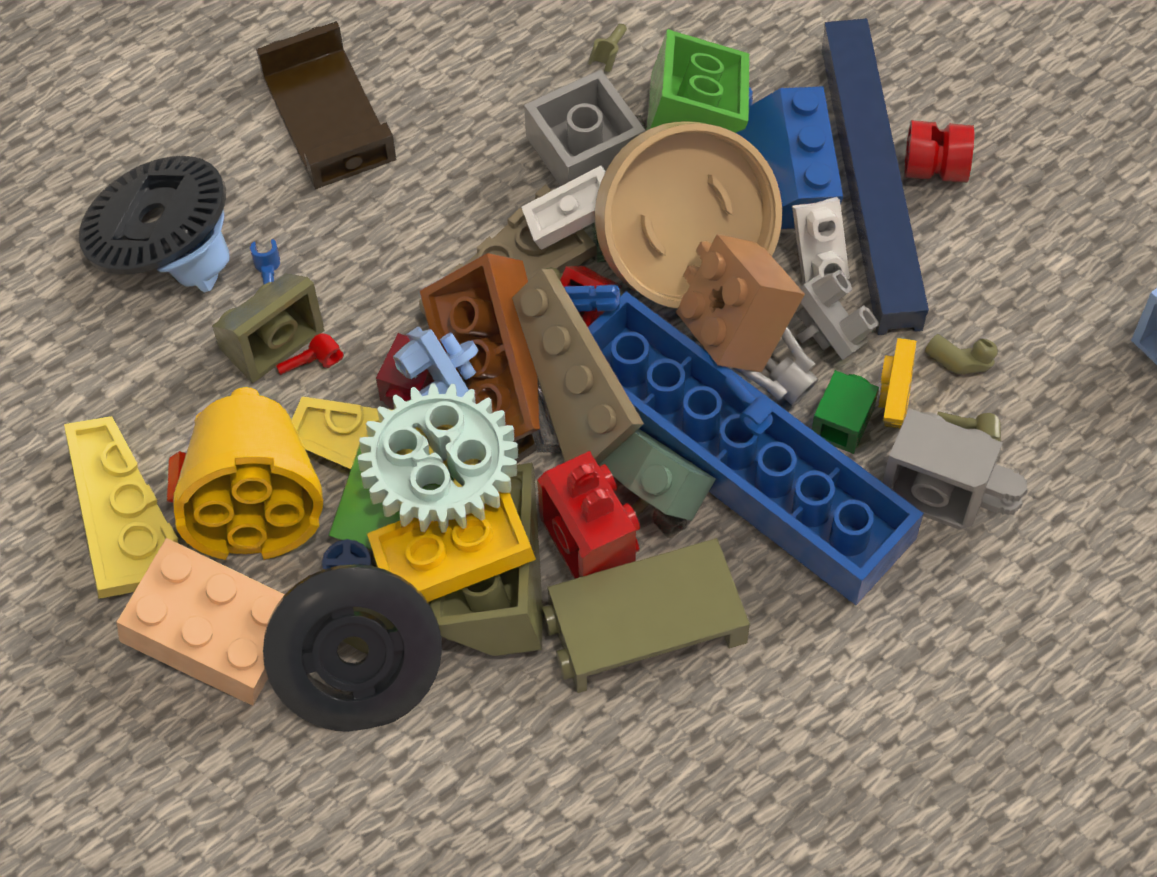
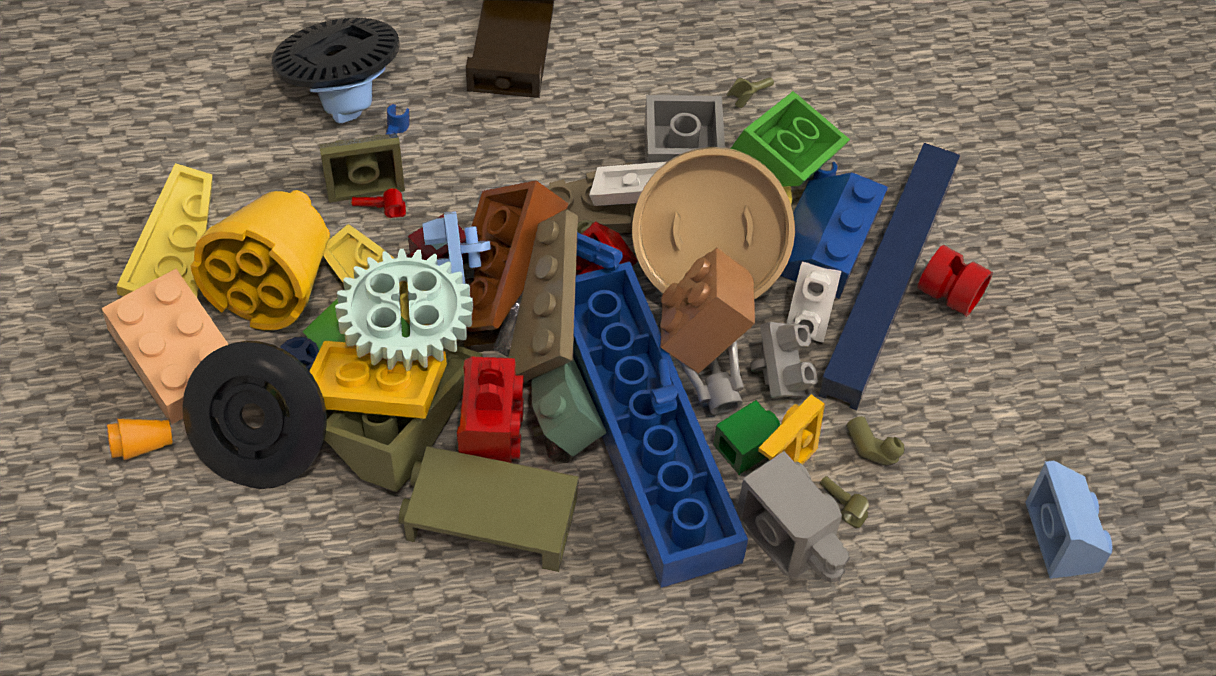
camera: 25 degrees right, 5 degrees down
(229, 739) = (137, 436): none -> light orange cone

